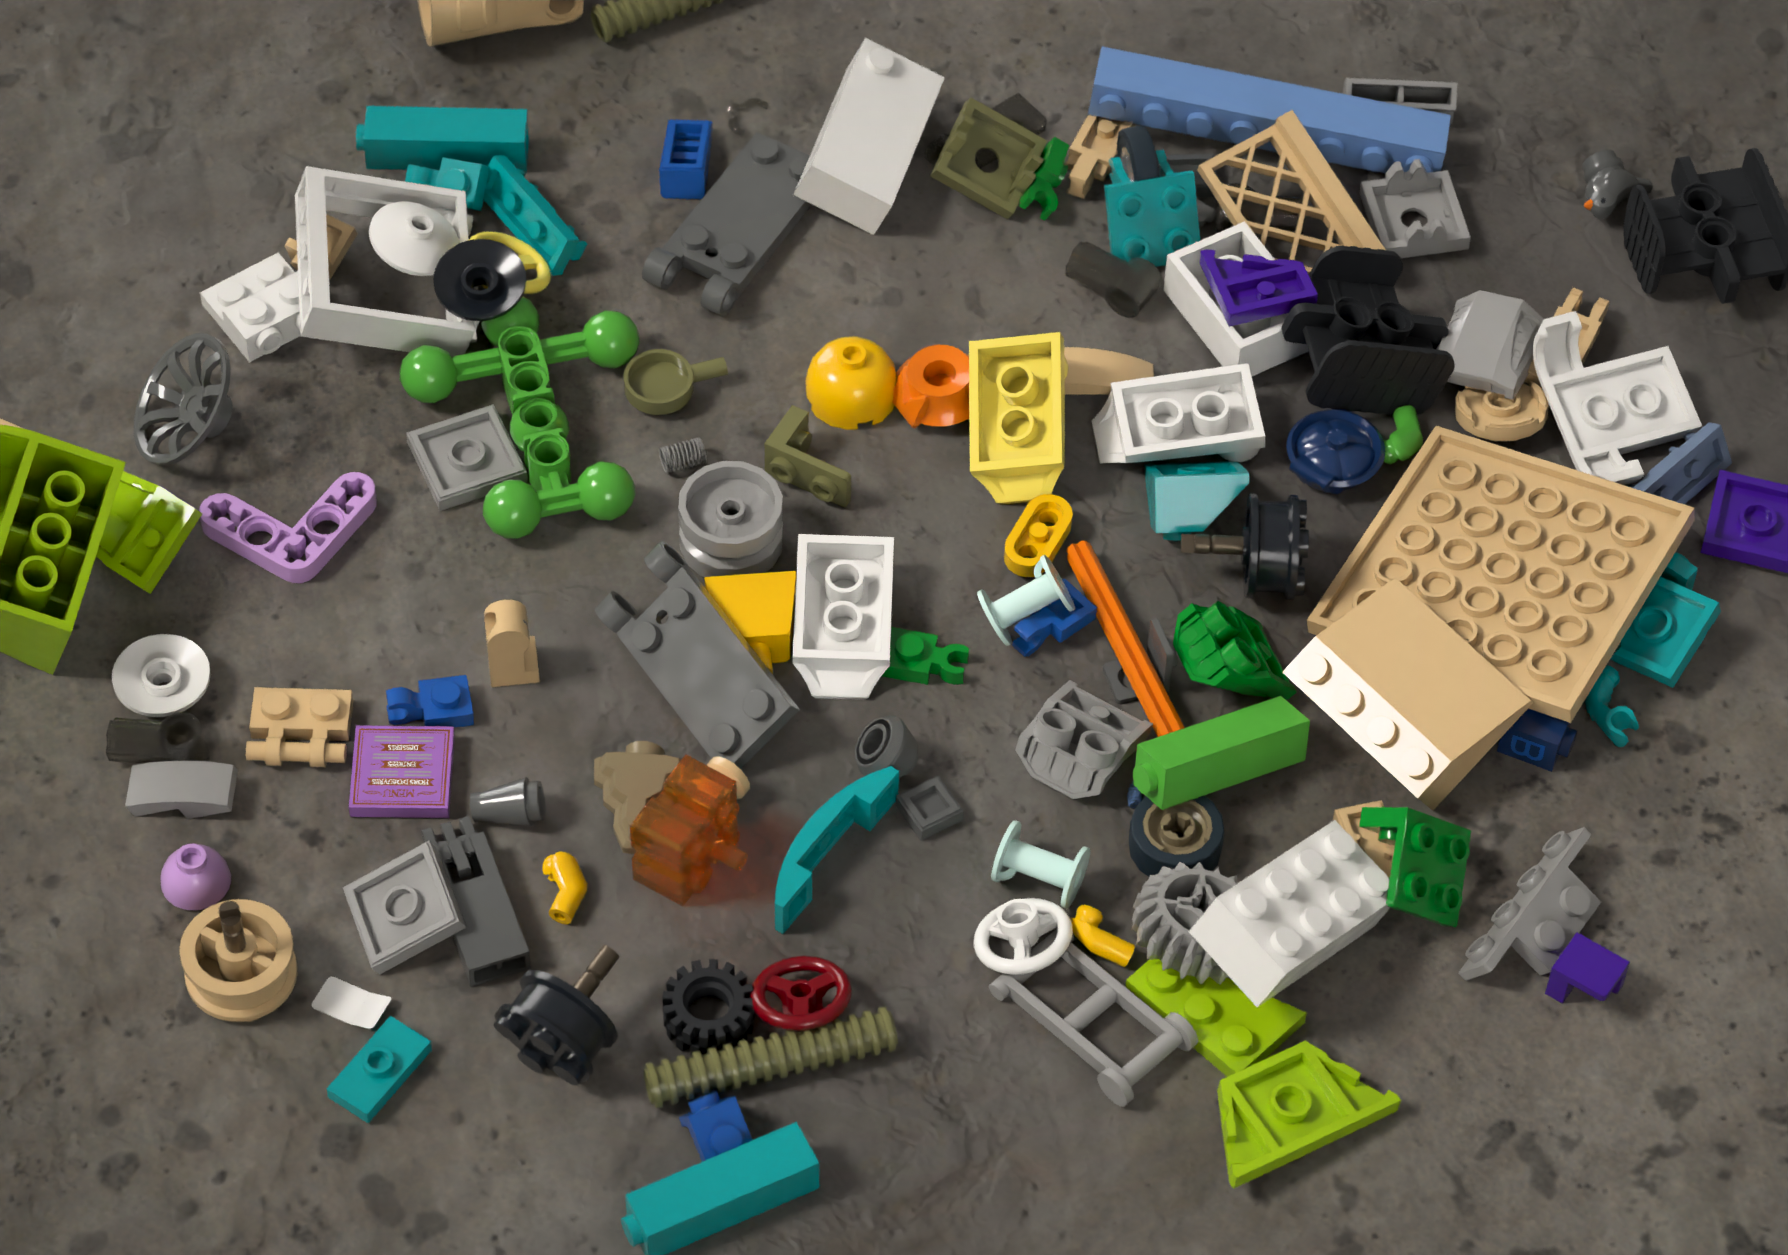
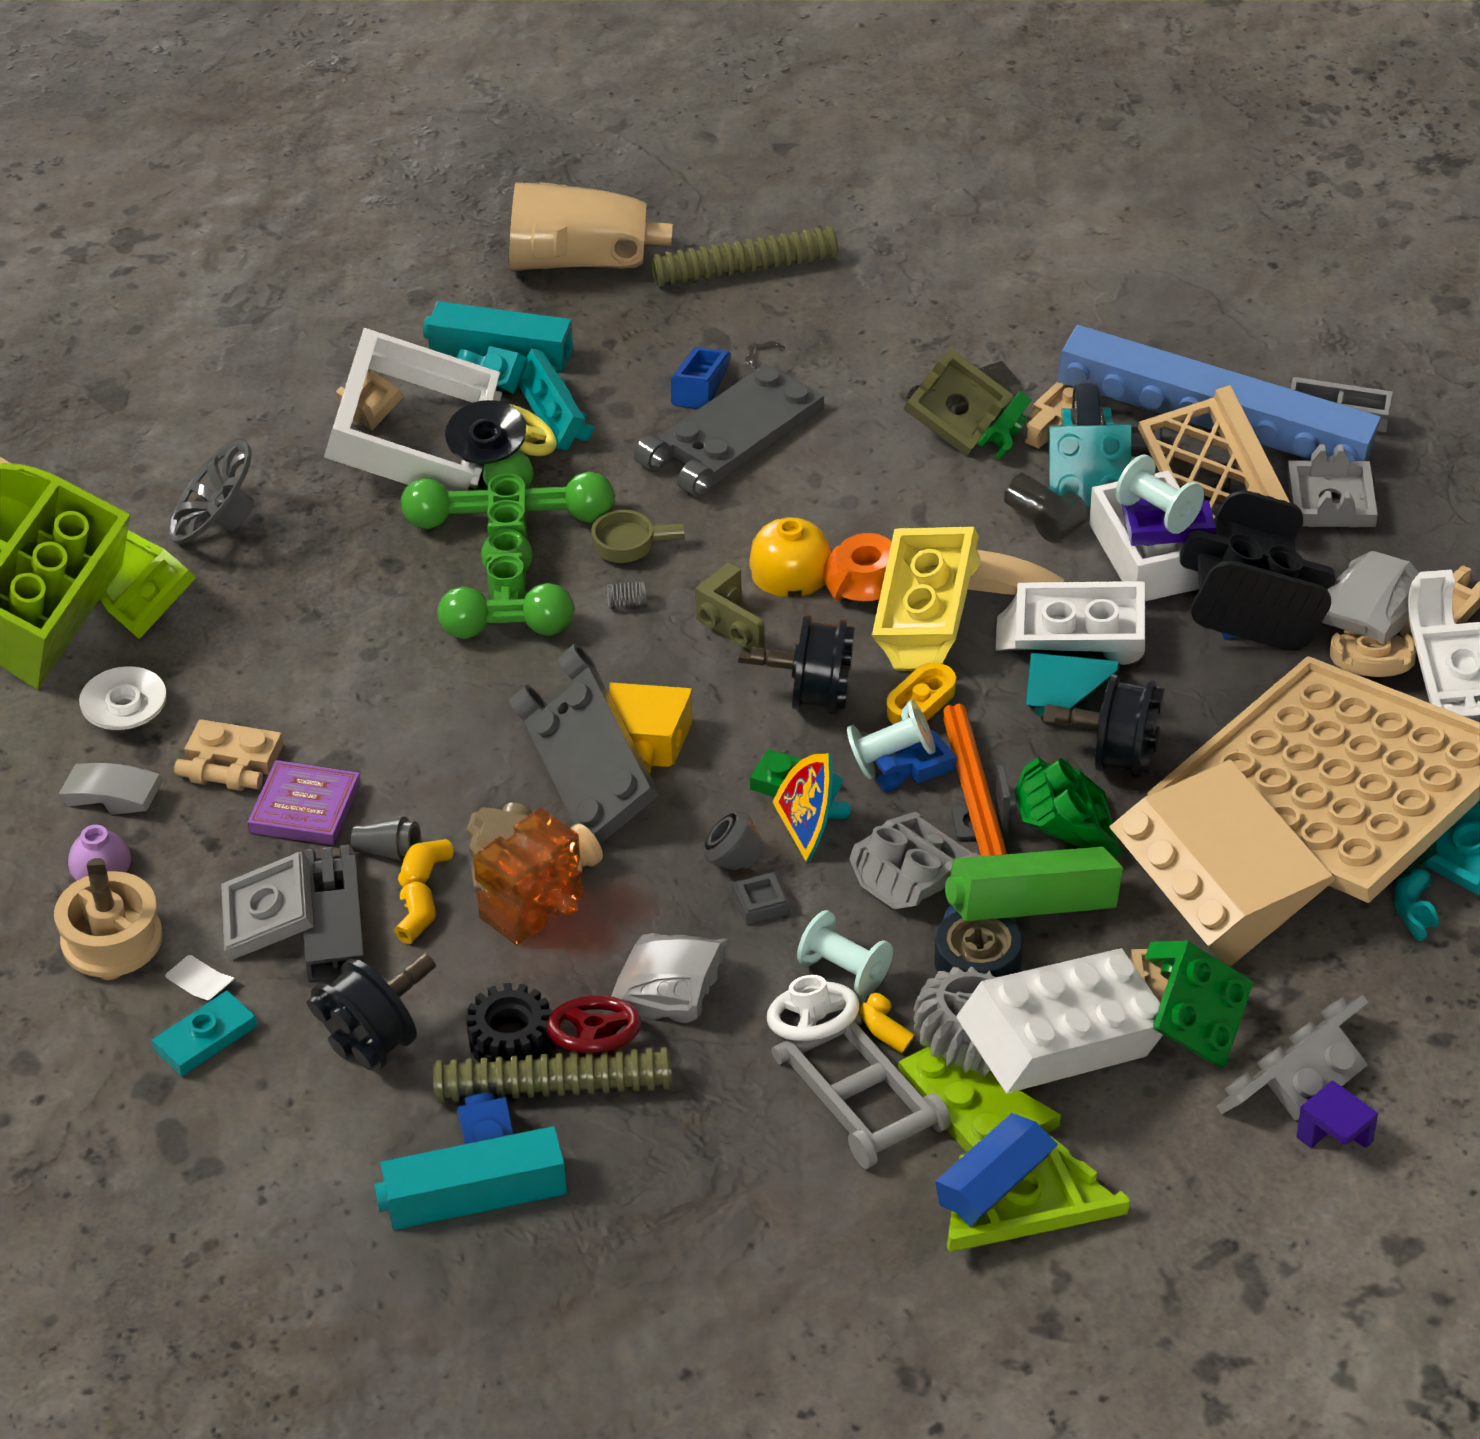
camera: 15 degrees right, 10 degrees down
(147, 741) = (91, 745): clear smoke piece -> none
(257, 306) = (300, 441): white plate -> none
(289, 541) = (276, 623): lavender beam -> none
(411, 237) = (438, 394): white dish -> none
(438, 703) = (352, 753): blue plate -> none
(465, 456) = (437, 566): light grey tile -> none
(509, 646) = (422, 721): tan leg -> none
(555, 823) = (421, 859): none -> yellow arm
(730, 520) = (648, 641): light grey wheel -> none
(843, 613) = (726, 730): white slope -> none
(859, 802) = (697, 880): teal slope -> none
(860, 918) = (670, 975): none -> light grey slope
(869, 136) = (857, 373): white brick -> none
(923, 520) = (818, 664): none -> black wheel
(955, 689) = (808, 800): none -> shield
(1232, 257) = (1139, 482): none -> light aqua piece
(1263, 1092) = (993, 1167): none -> blue piece
(1334, 450) = (1208, 664): dark blue piece -> none
(1406, 439) = (1277, 665): bright green arm -> none
(1538, 739) = (1340, 918): dark blue brick -> none

